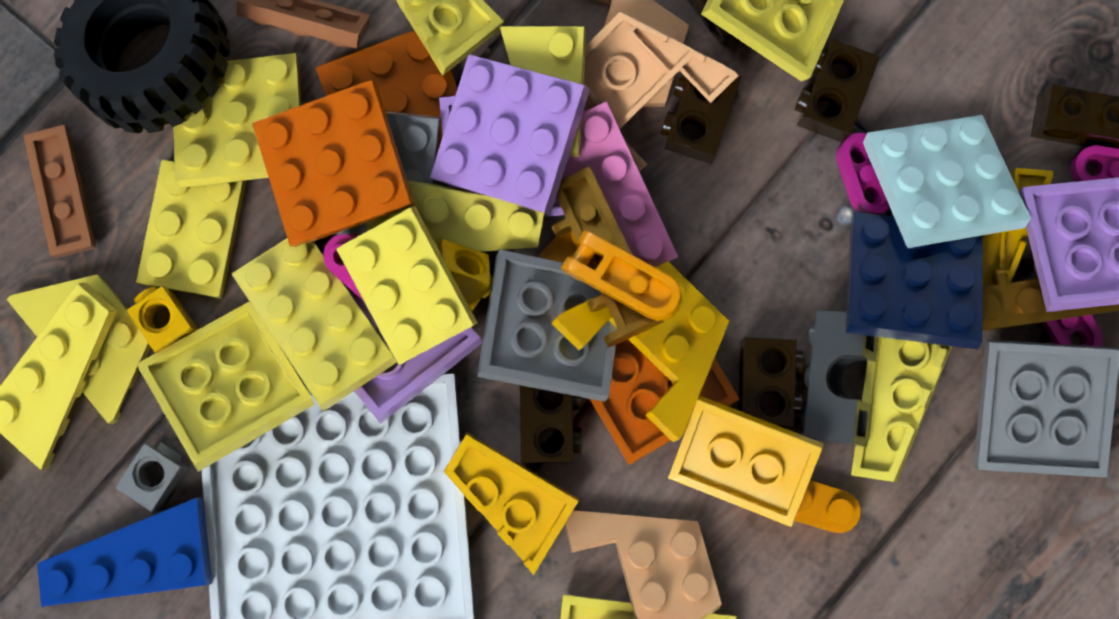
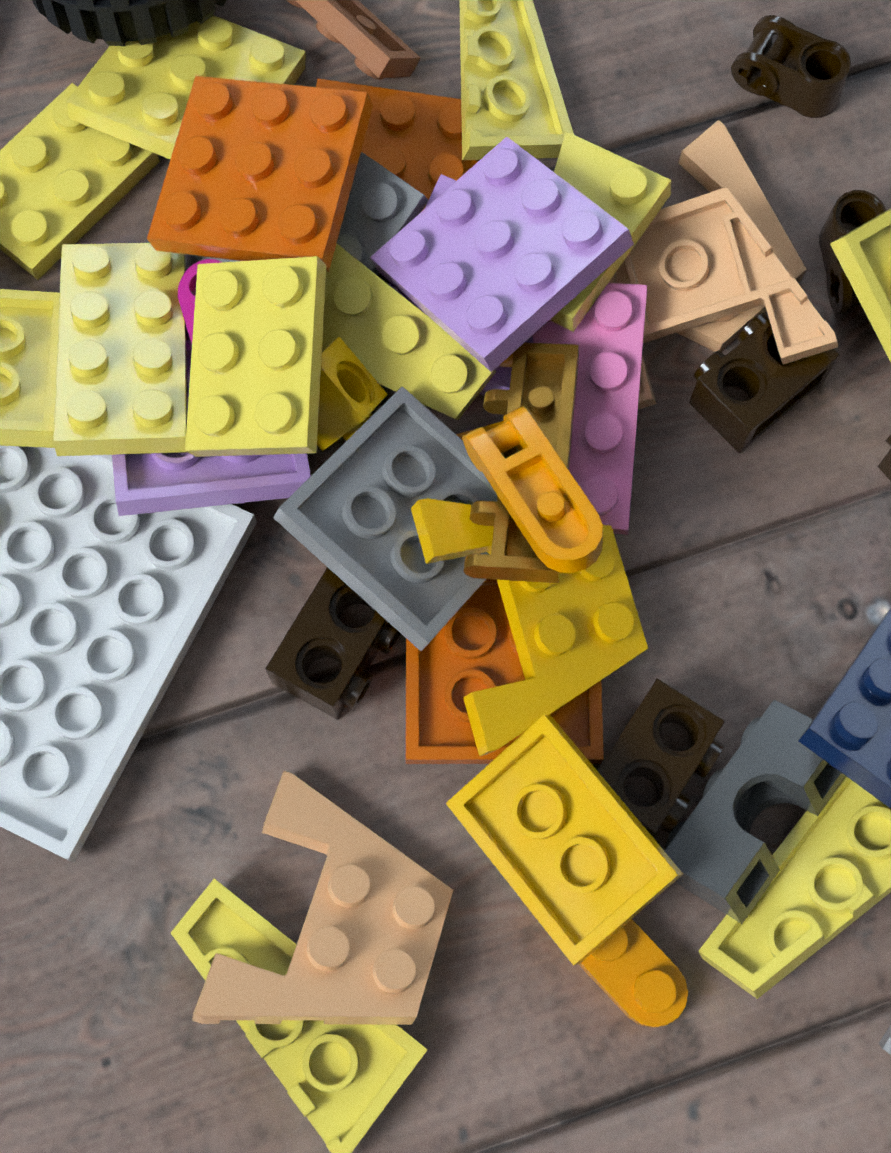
camera: 30 degrees right, 10 degrees down
(512, 498) = (226, 710): yellow wing -> none

